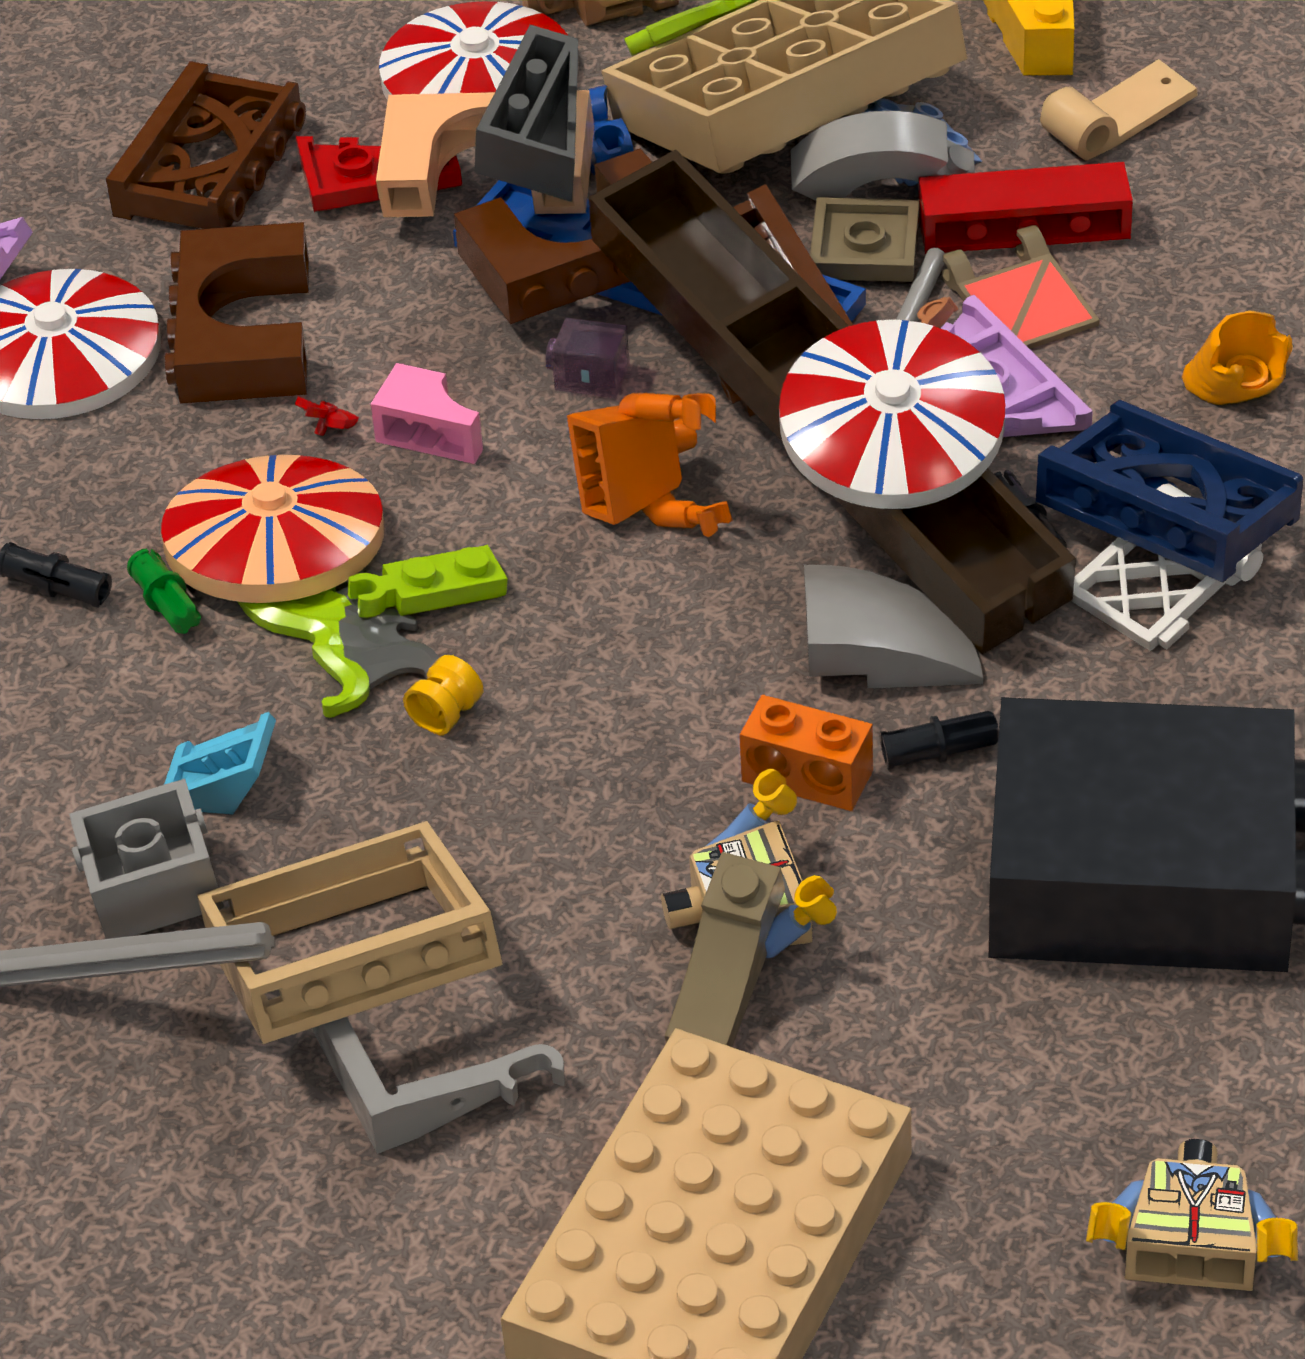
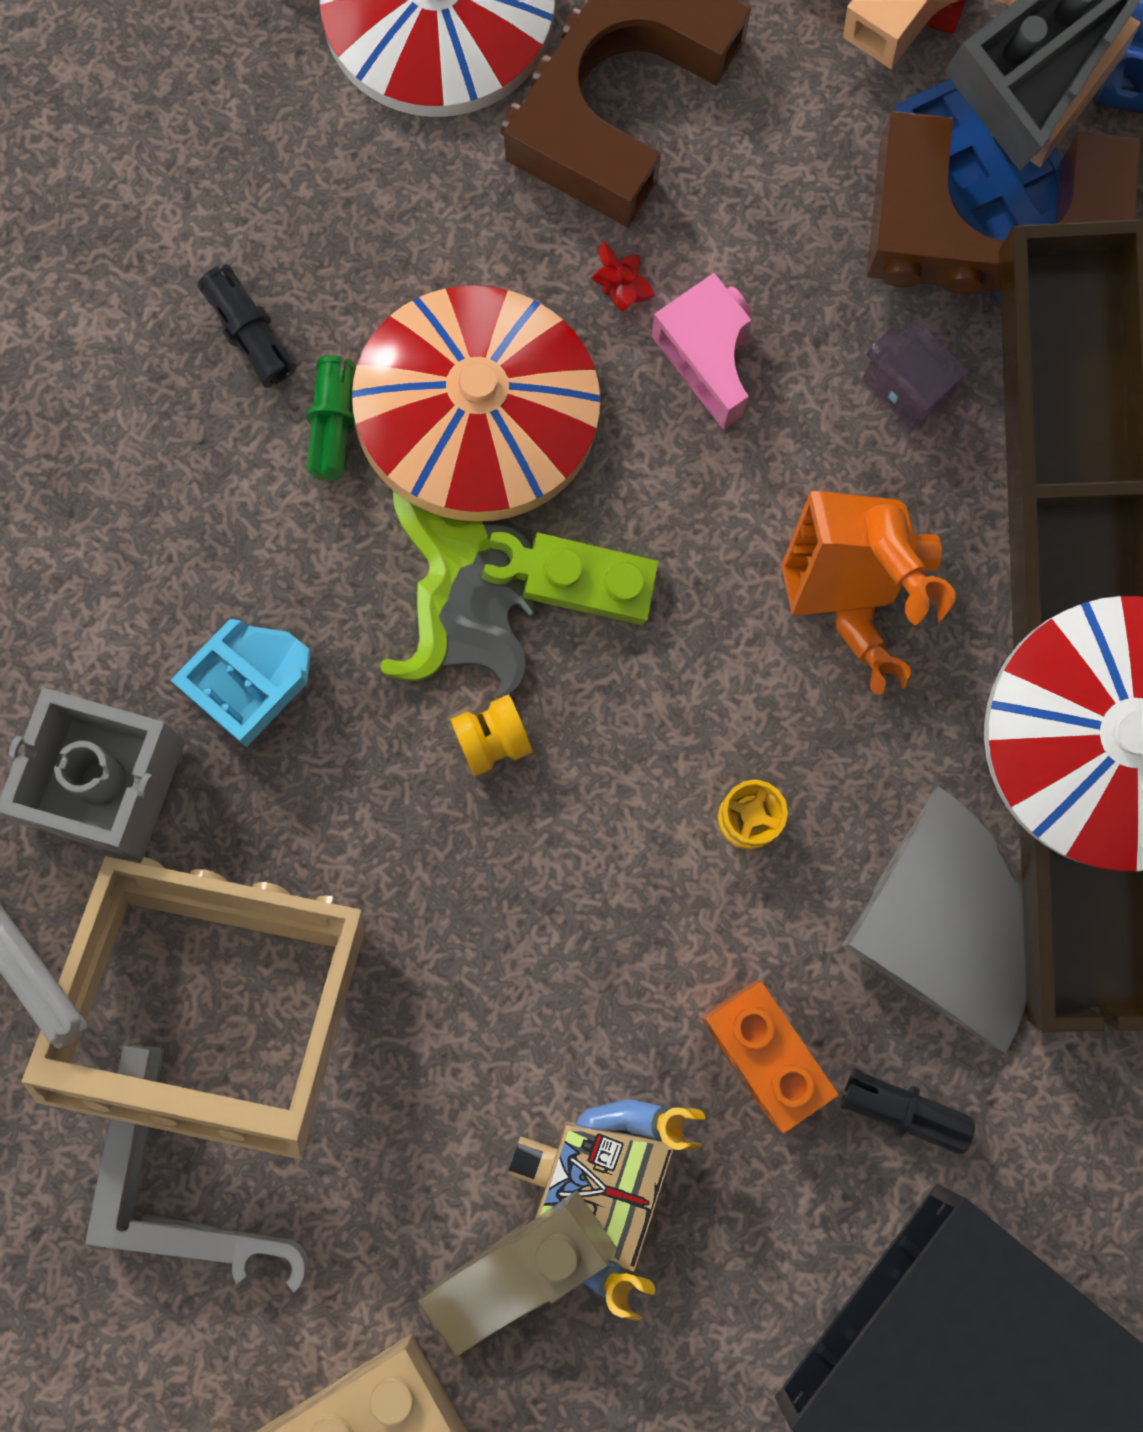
camera: 30 degrees right, 35 degrees up
(679, 637) = (760, 807): none -> yellow wheel

